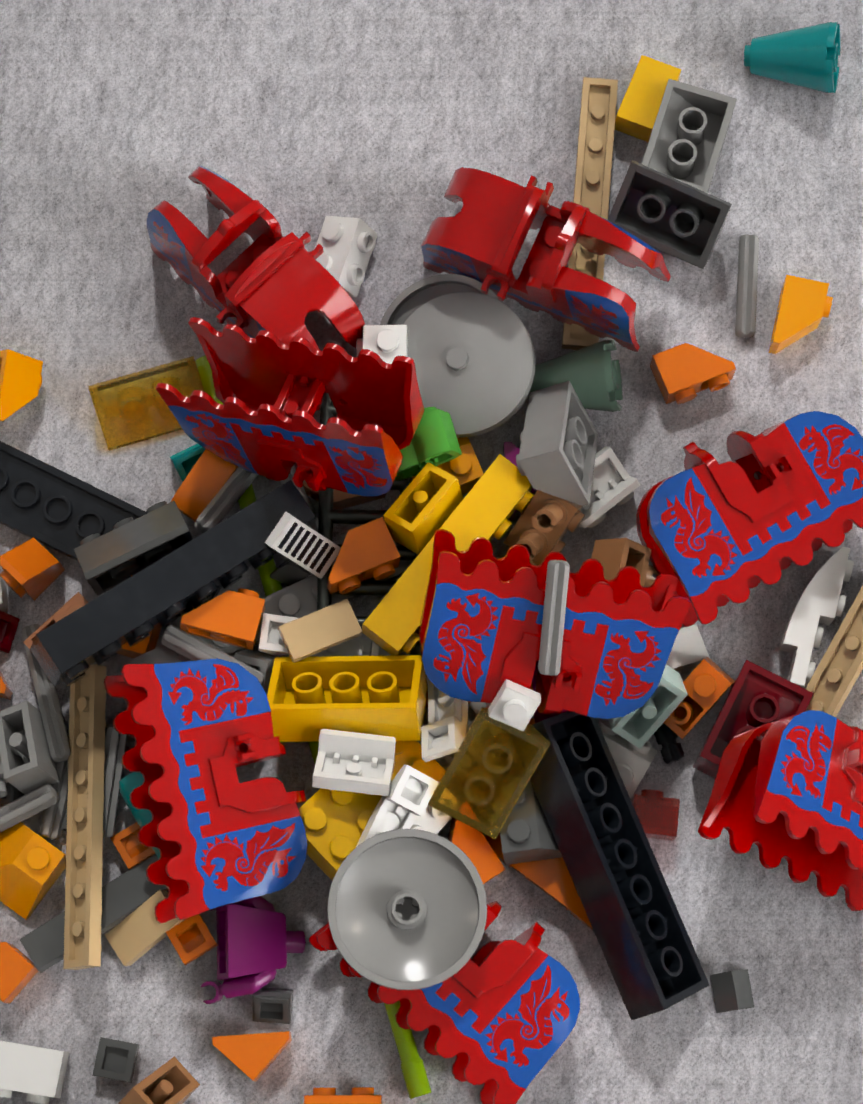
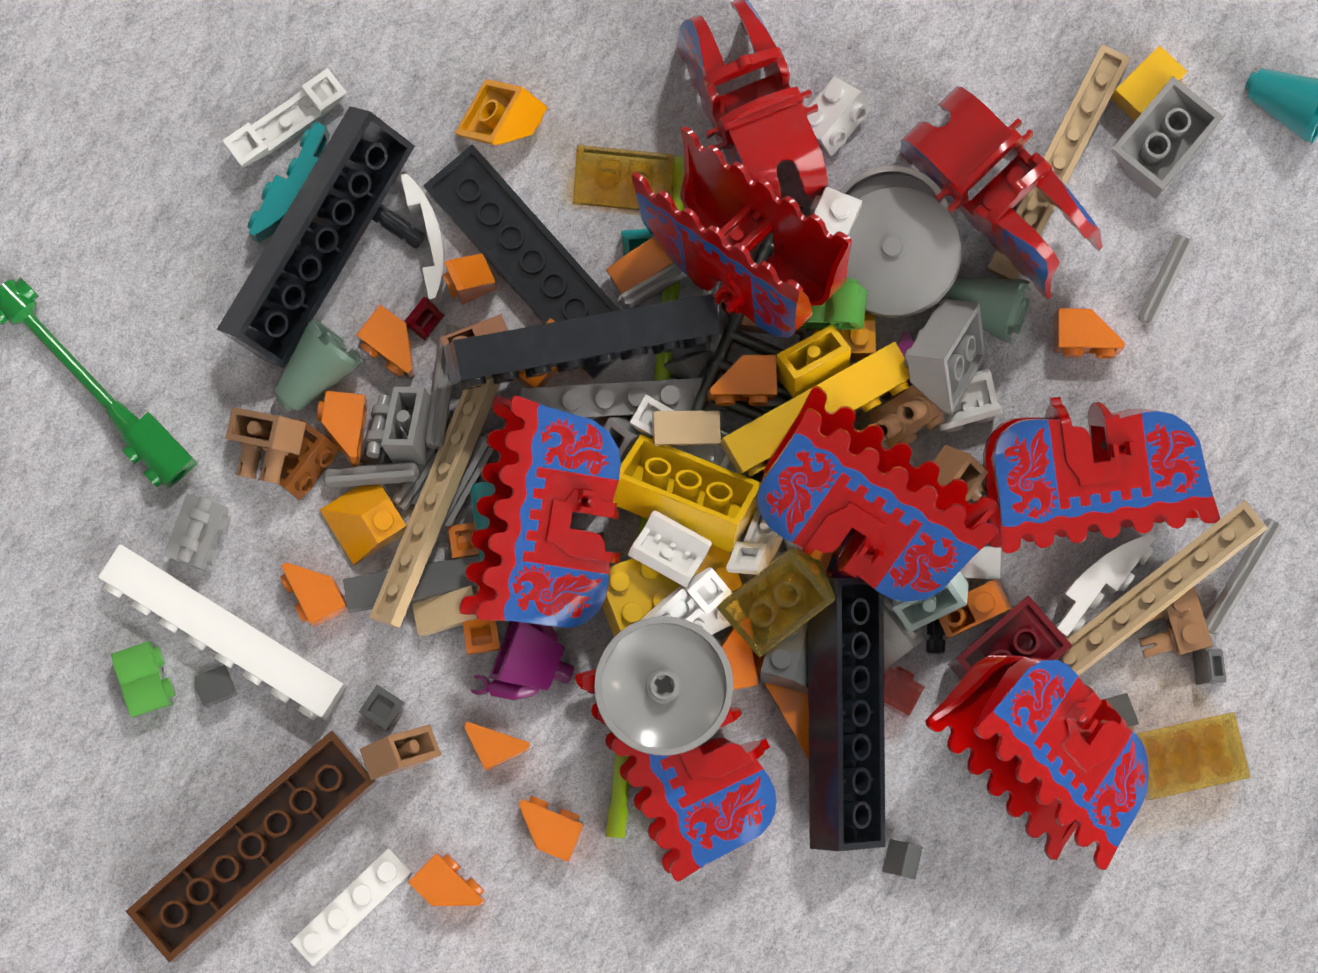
camera: 20 degrees right, 5 degrees up
(131, 546) = (561, 294): dark grey slope -> none
(199, 650) = (582, 406): light grey axle -> none
(227, 618) = (614, 387): orange slope -> none
(272, 1005) = (525, 716): dark grey slope -> none
(303, 545) = (700, 352): white tile -> none
(514, 705) = (819, 556): white plate -> none
(553, 617) = (879, 499): light grey axle -> none
(669, 214) = (1122, 194): dark grey slope -> none
(799, 311) = (1199, 319): light orange slope -> none

